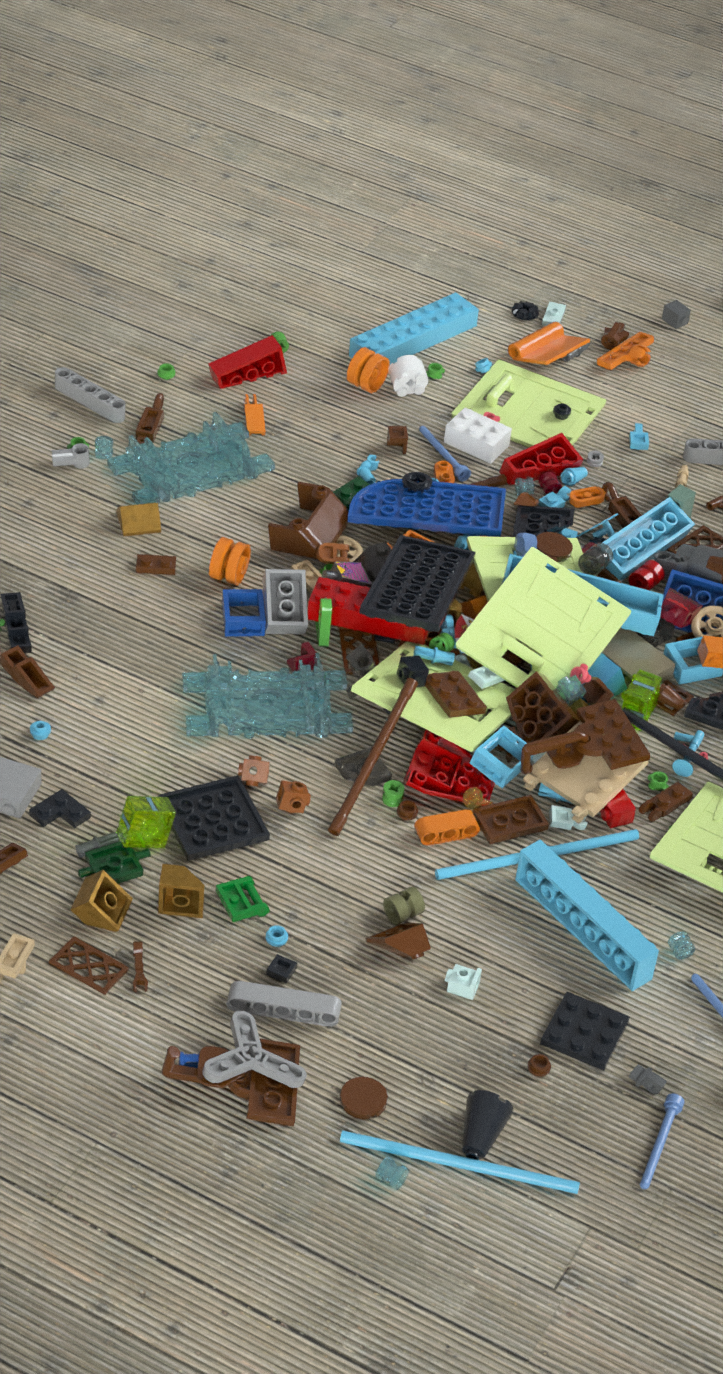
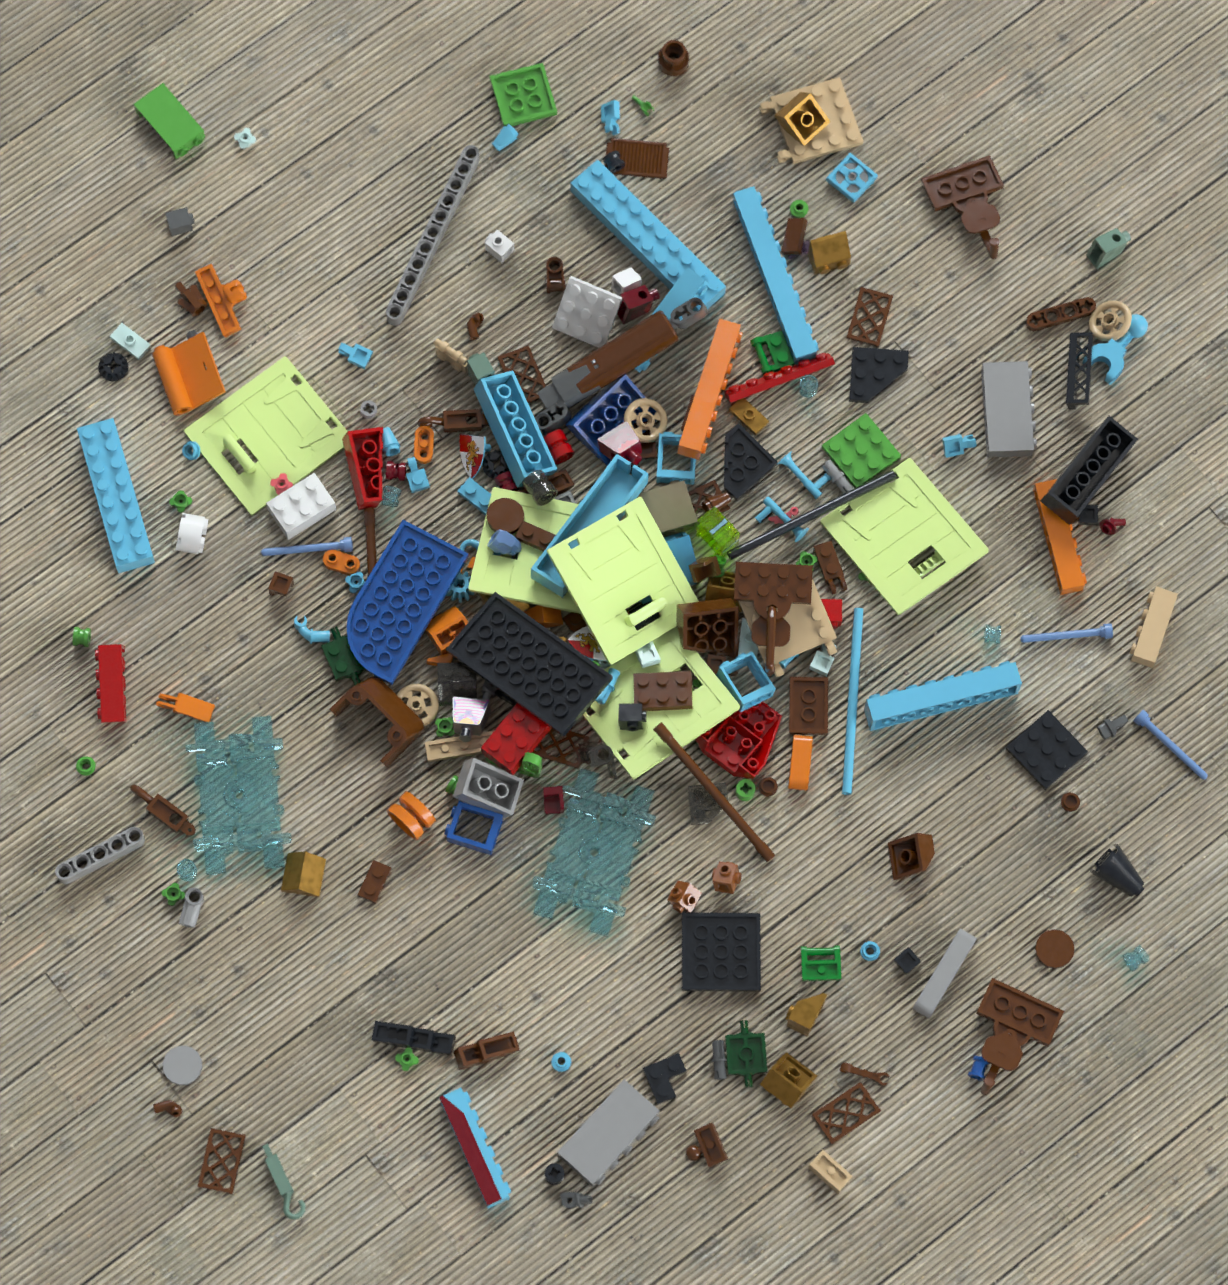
camera: 65 degrees left, 30 degrees up
(146, 822) = (723, 1012): clear neon green container -> none
(262, 1061) = (1012, 1012): light grey piece -> none
(327, 553) = (431, 721): dark orange plate -> none
(368, 370) = (169, 571): orange wheel -> none
(404, 905) = (879, 842): olive wheel -> none
(410, 481) = (366, 590): black gear -> none
(460, 1162) = (1138, 903): medium azure piece -> none
(463, 981) = (975, 817): light aqua brick -> none
(473, 798) = (781, 725): clear yellow plate -> none
(526, 500) = (412, 504): dark orange slope -> none
(542, 519) = (448, 507): black plate -> none
(561, 411) = (292, 413): black plate -> none
(570, 689) = (699, 591): clear light blue brick -> none
(581, 670) = (686, 574): coral plate -> none

